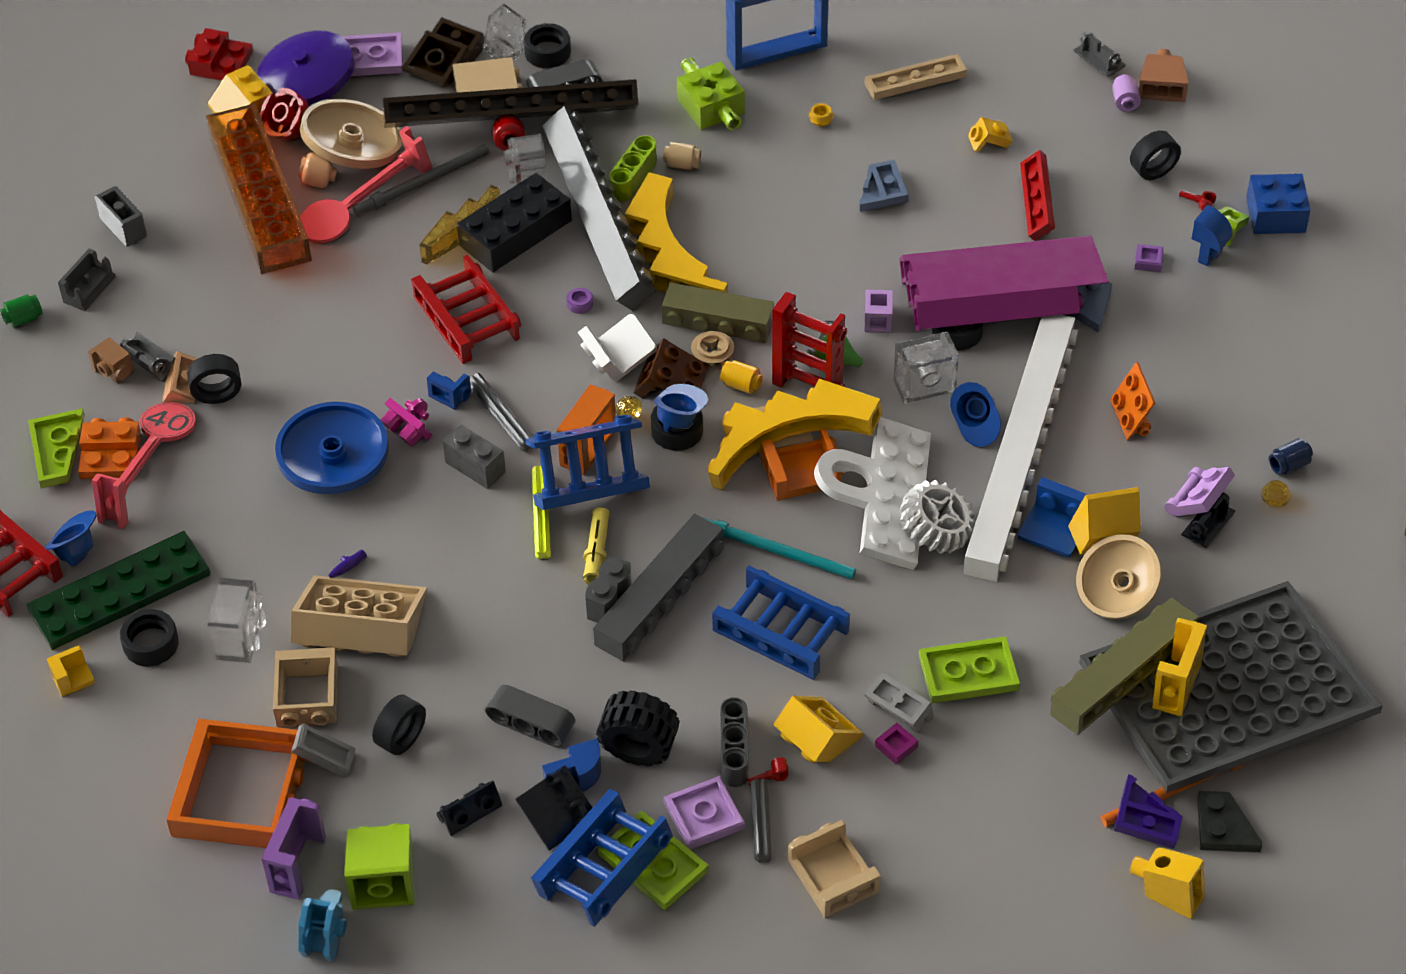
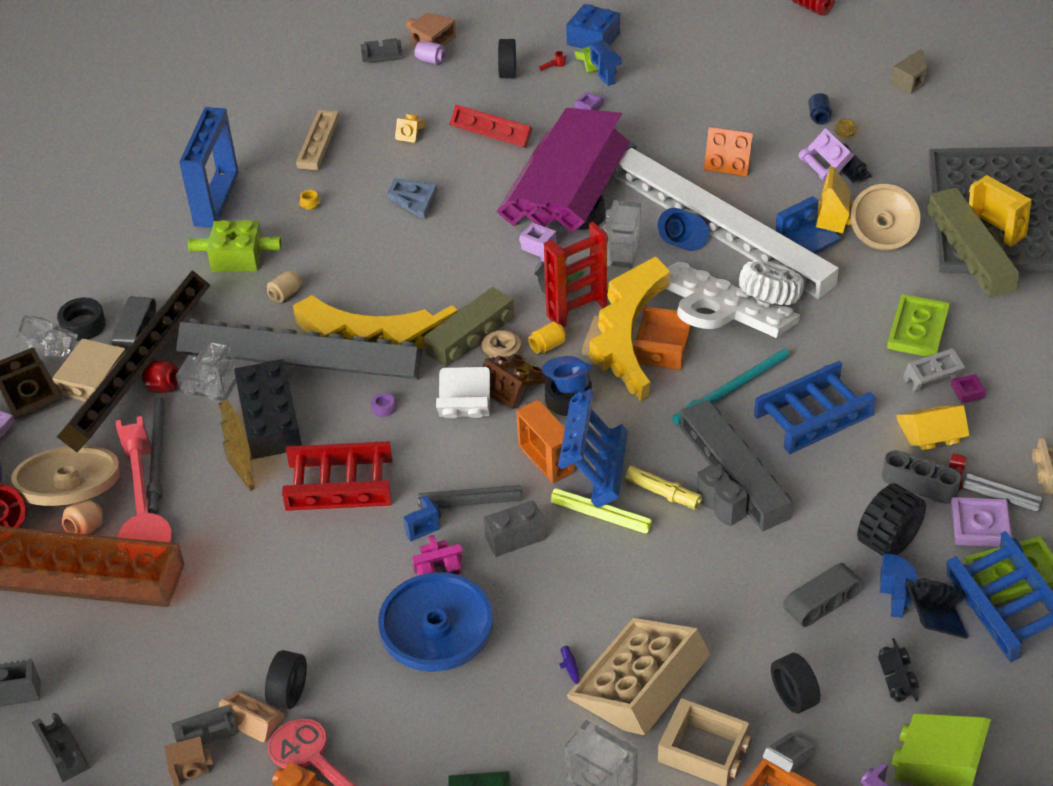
camera: 60 degrees left, 5 degrees down
(633, 167) = (267, 311): lime beam -> none

